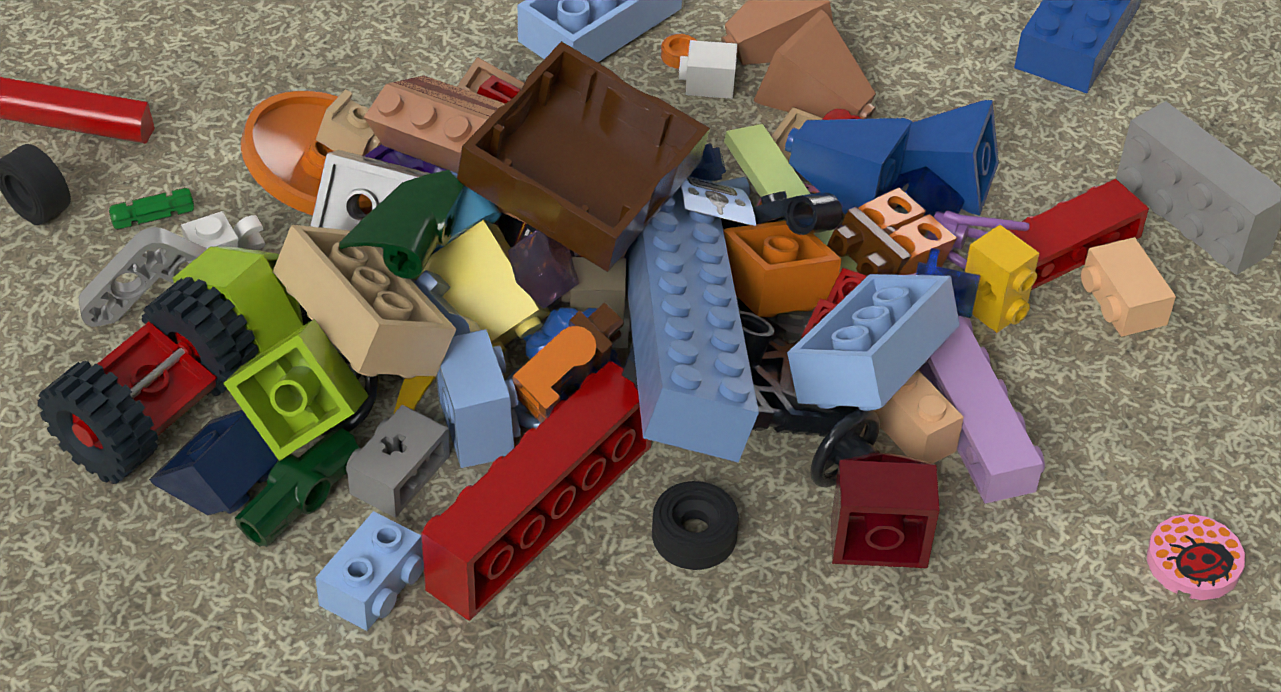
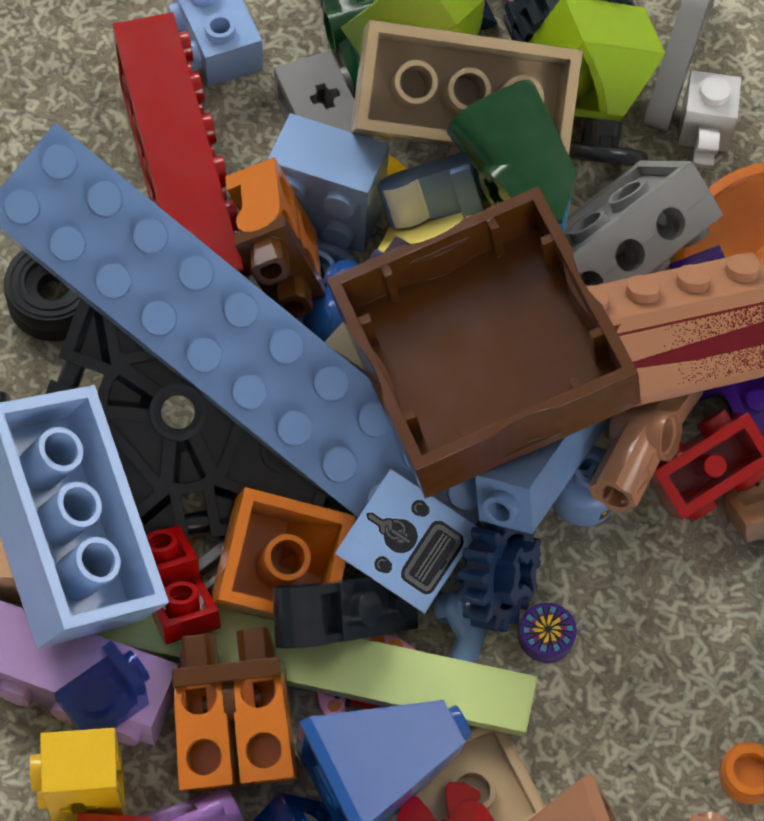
camera: 125 degrees right, 15 degrees up
(709, 69) = (677, 763): white brick -> none

